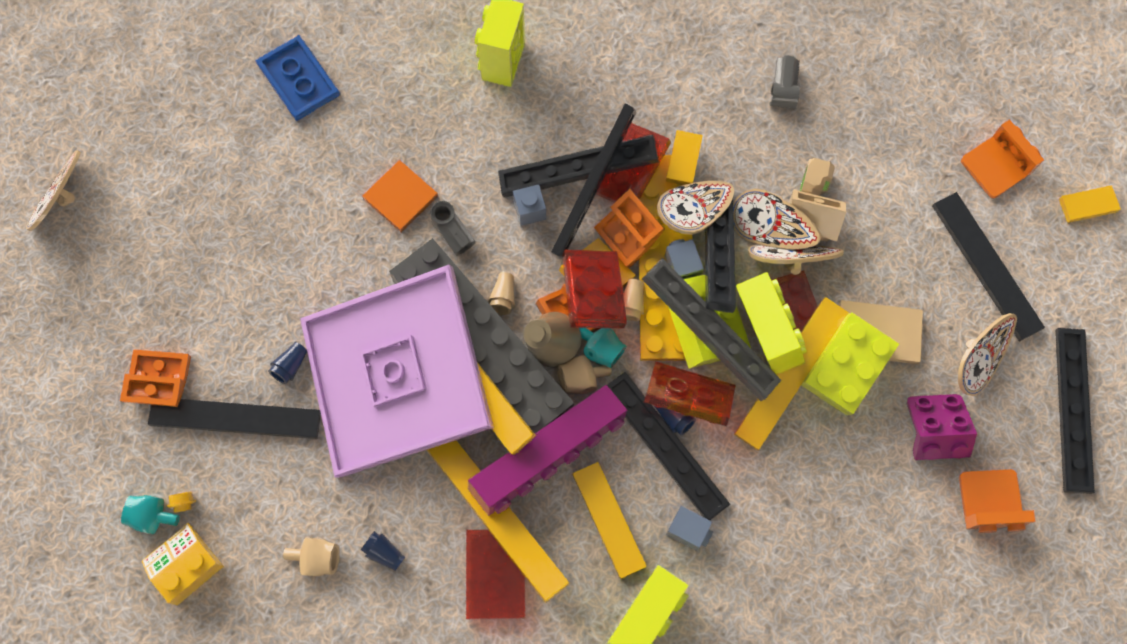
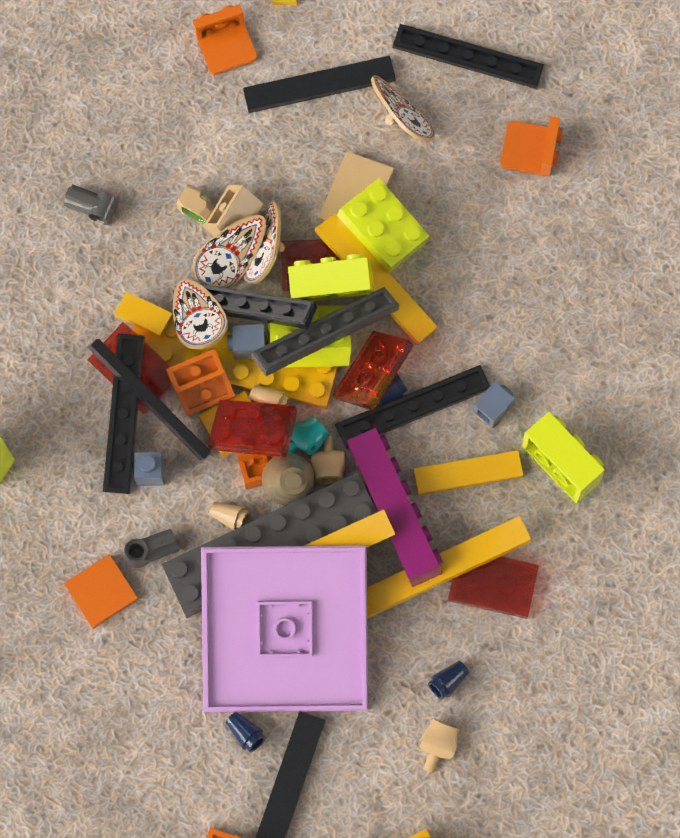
camera: 70 degrees left, 0 degrees up
(941, 427) = (456, 167): magenta bracket -> none

